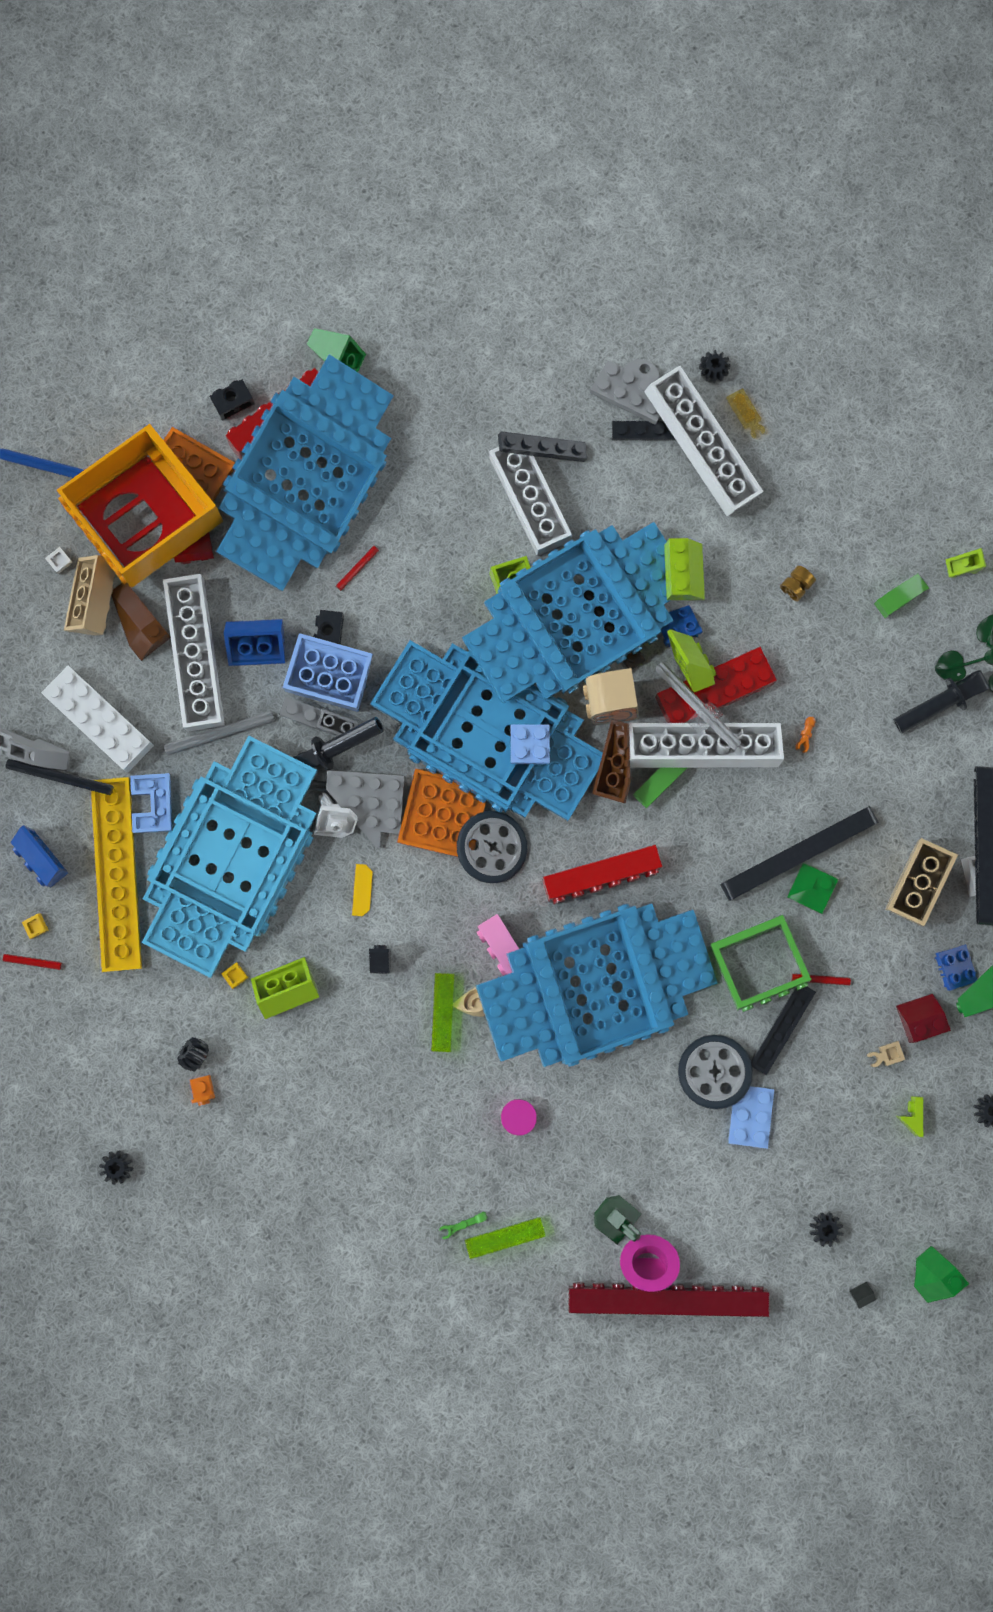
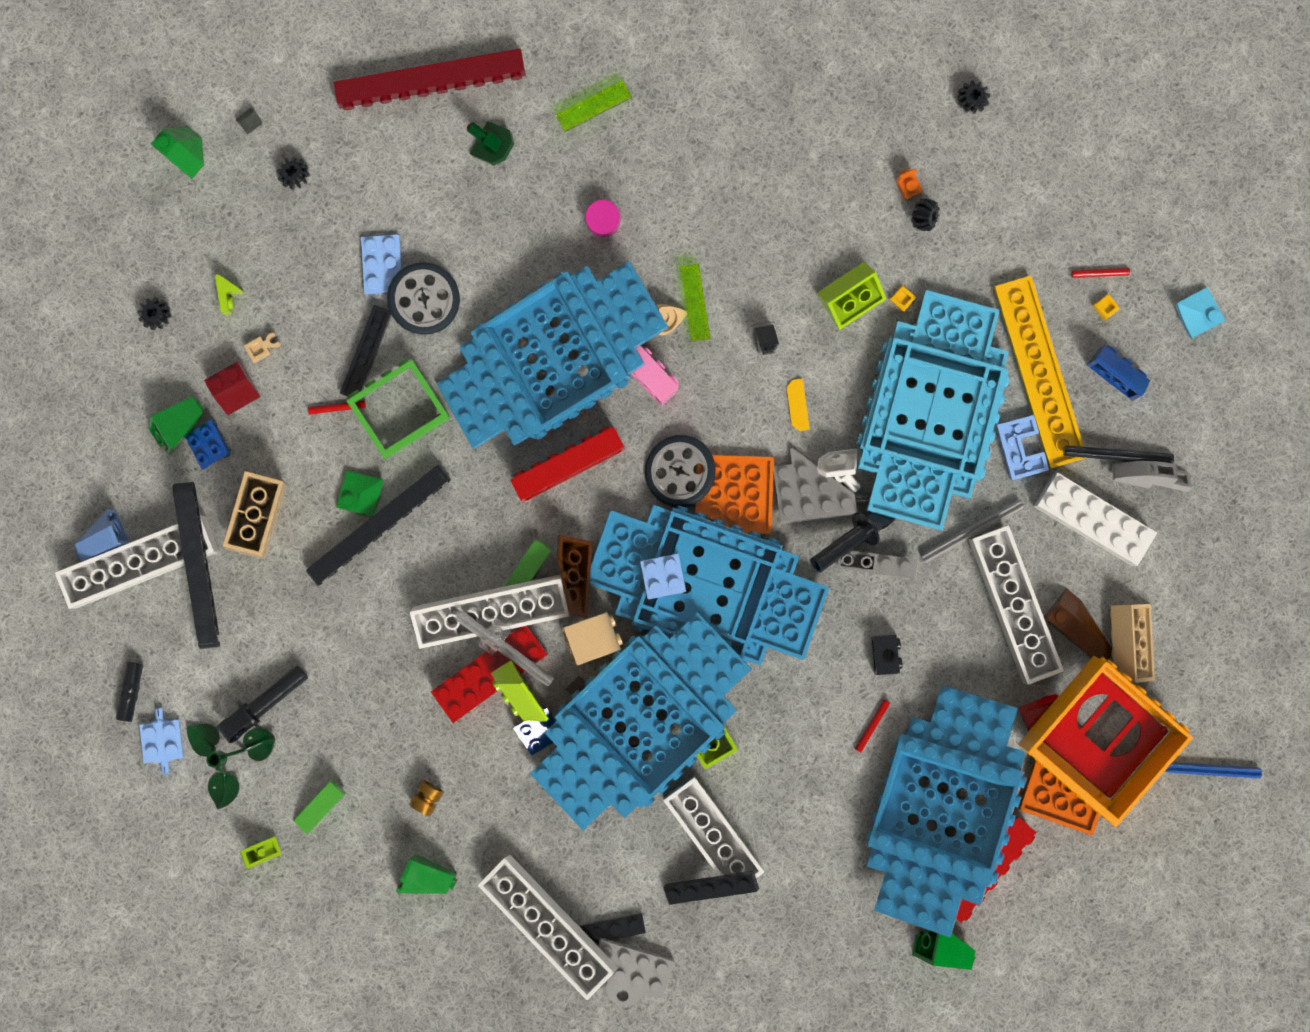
camera: 170 degrees right, 5 degrees up
(58, 560) = (1173, 673): white plate -> none
(228, 408) = (1027, 881): black brick -> none
(255, 642) = (957, 628): blue slope -> none
(328, 672) = (878, 611): light blue slope -> none
(478, 1218) = (622, 118): bright green piece -> none
(650, 1273) = (452, 98): dark pink hose -> none
(684, 569) = (542, 784): lime slope -> none
(721, 369) = (559, 1012): black gear -> none
(745, 411) = (511, 970): clear yellow plate -> none
(806, 734) = (390, 657): orange piece -> none
(810, 510) = (426, 877): none -> green slope

